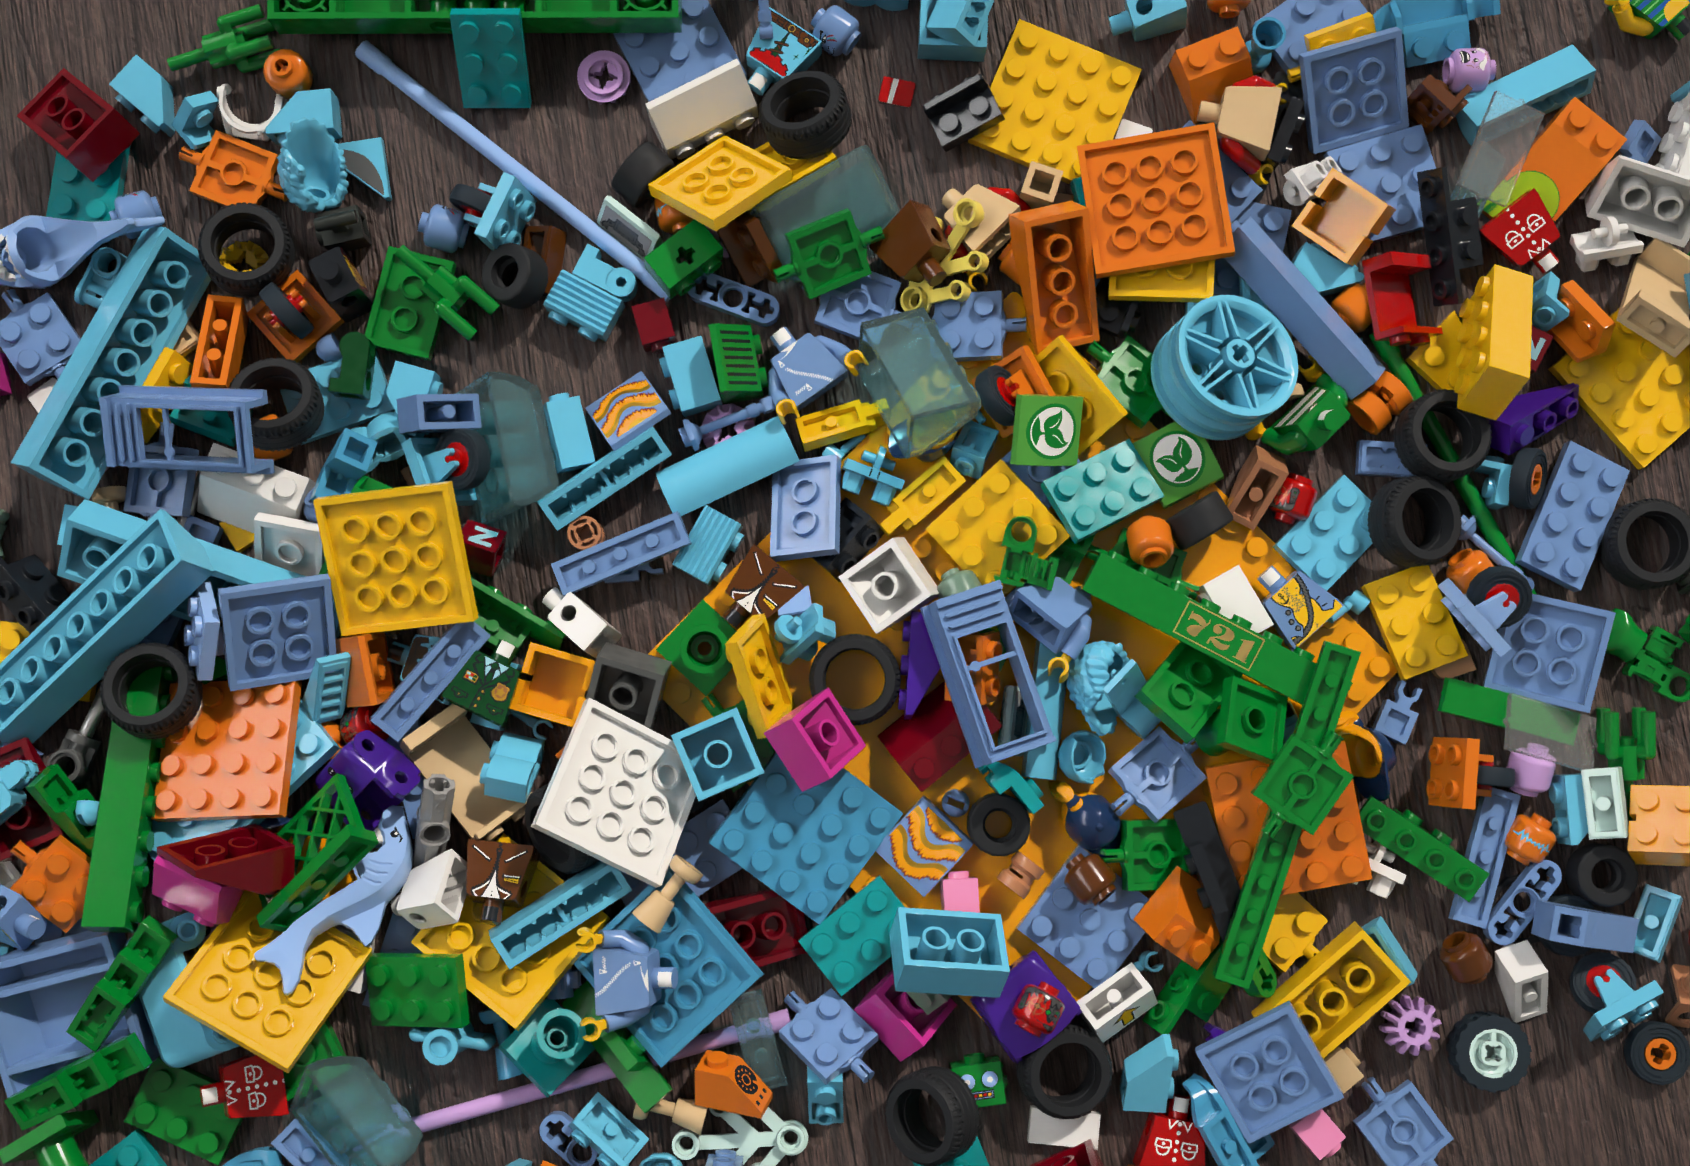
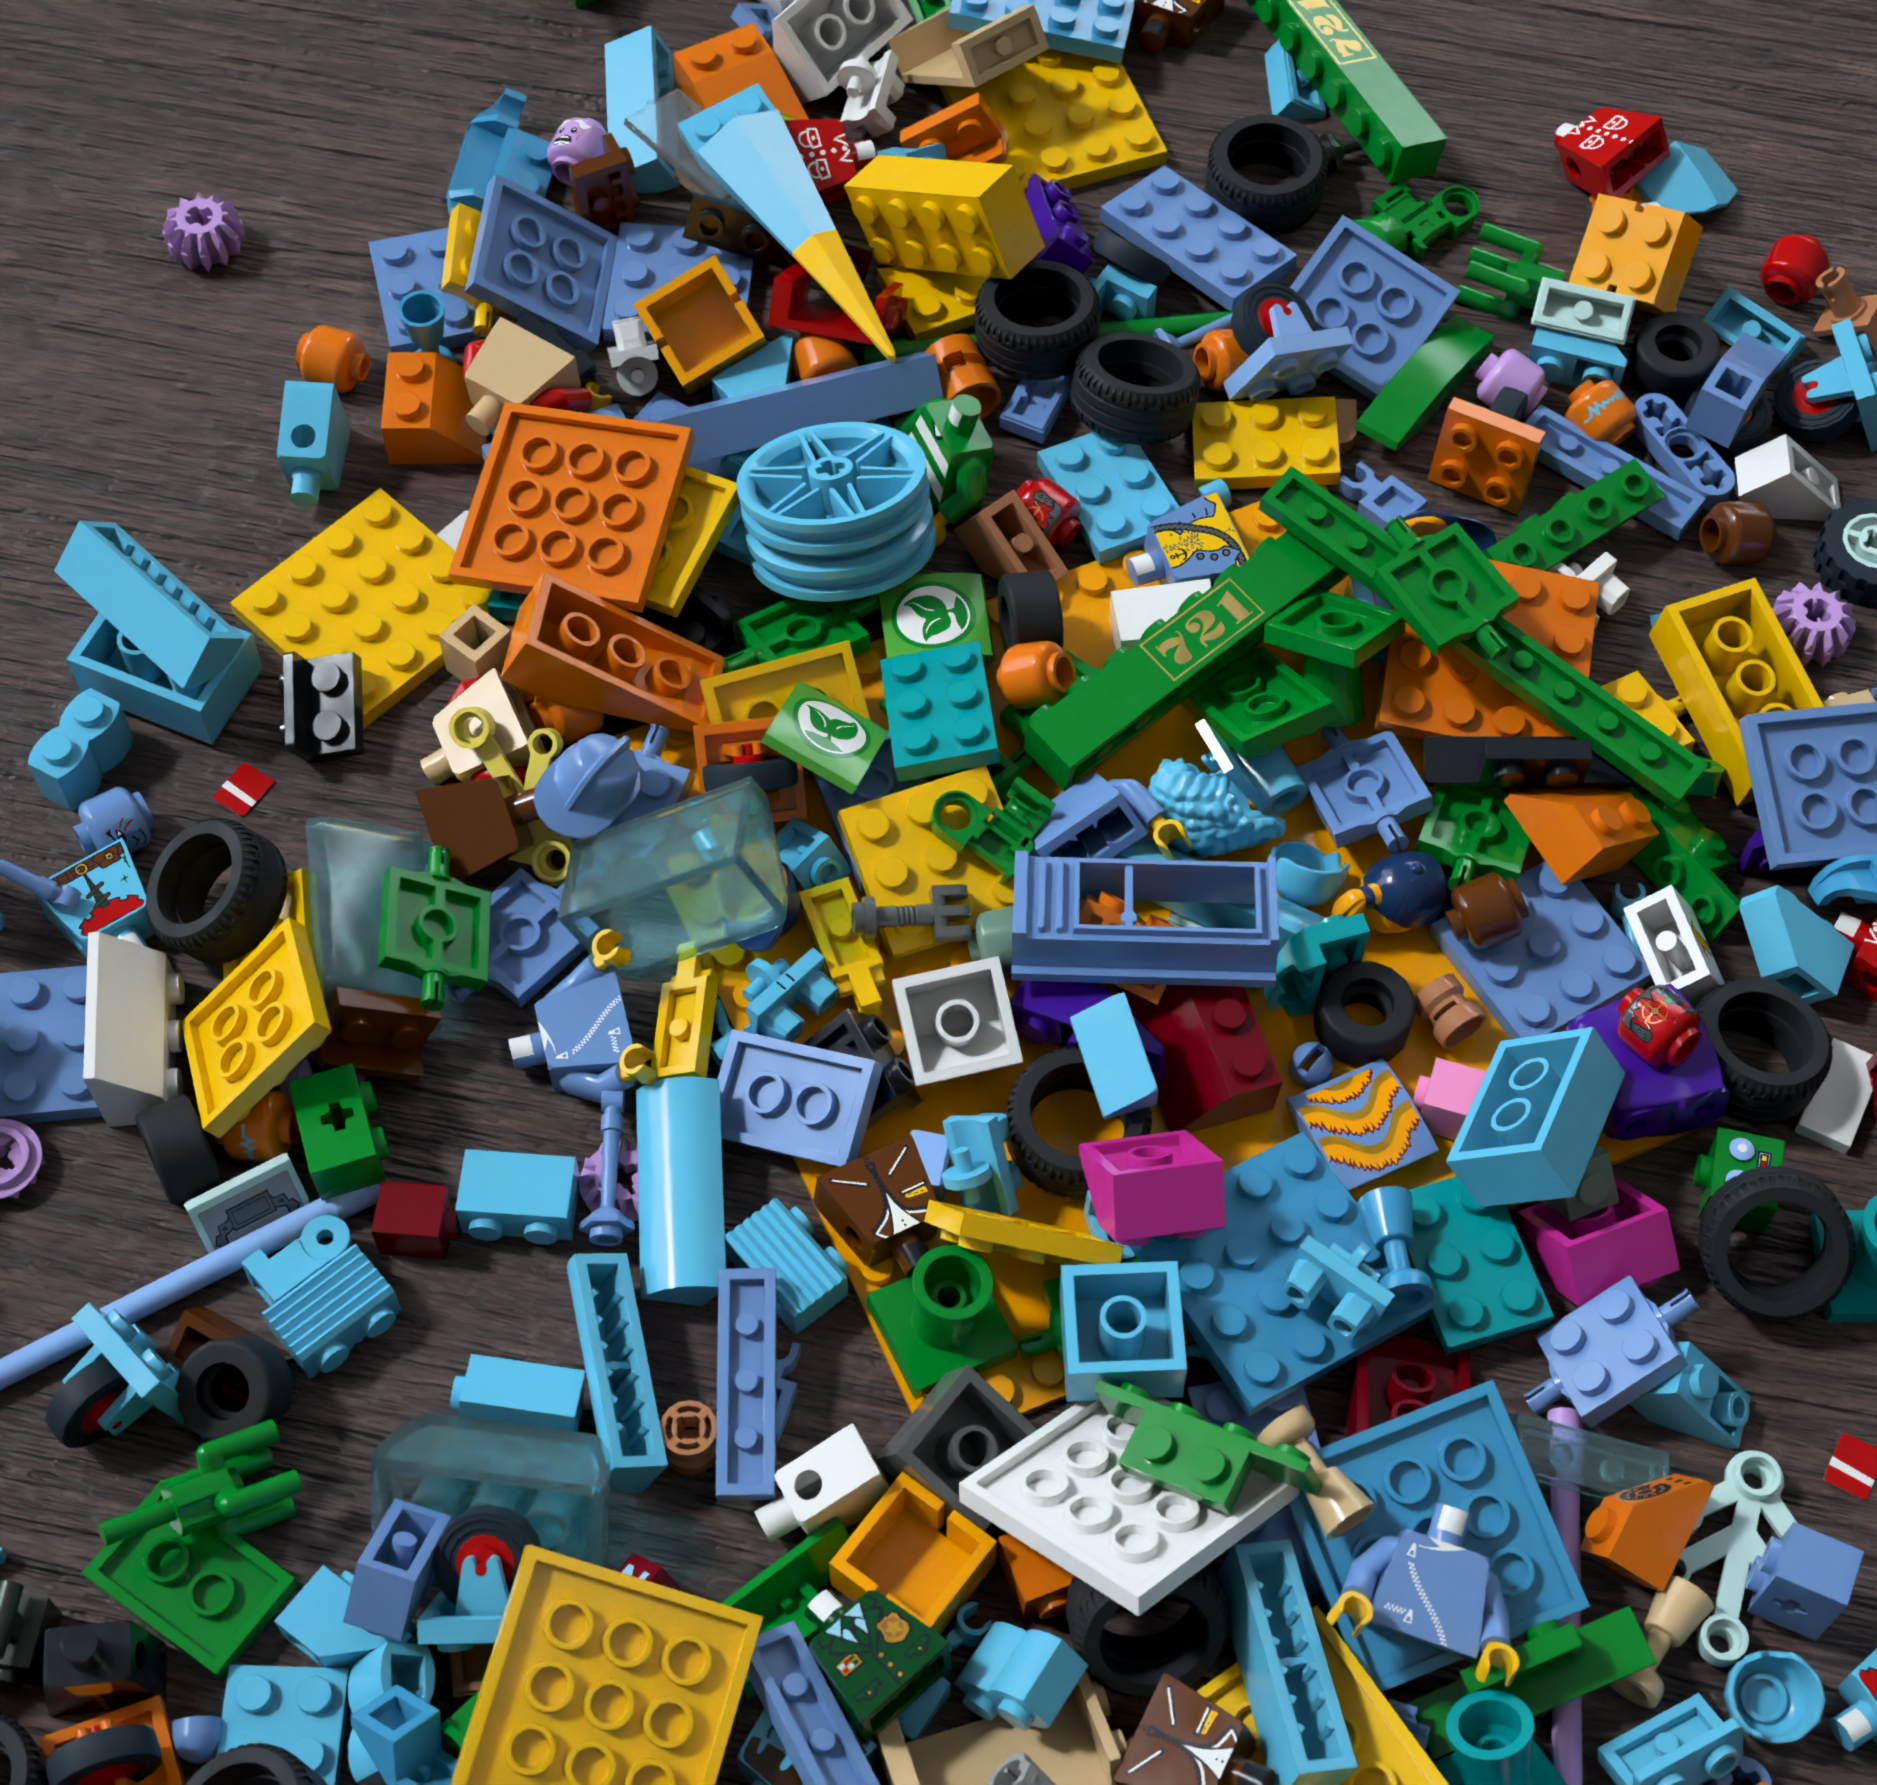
camera: 65 degrees left, 25 degrees down
(356, 367) = (242, 1679): dark green leg -> none
(443, 228) = (101, 1476): medium blue head -> none
(628, 410) = (529, 1295): slope -> none
(647, 823) = (1196, 1457): none -> green bracket
(706, 299) = (467, 1087): medium blue beam -> none
(737, 362) = (528, 1118): green slope -> none
(791, 883) = (1341, 1281): none -> medium azure hips
(850, 886) = (1389, 1222): none -> dark azure piece
(890, 688) = (1115, 1057): none -> medium azure slope
(956, 300) = (588, 786): none -> medium blue piece
(956, 545) = (868, 917): none -> dark grey hinge
(1494, 192) = (758, 164): none -> medium azure plate
(1549, 732) = (1469, 341): clear piece -> none

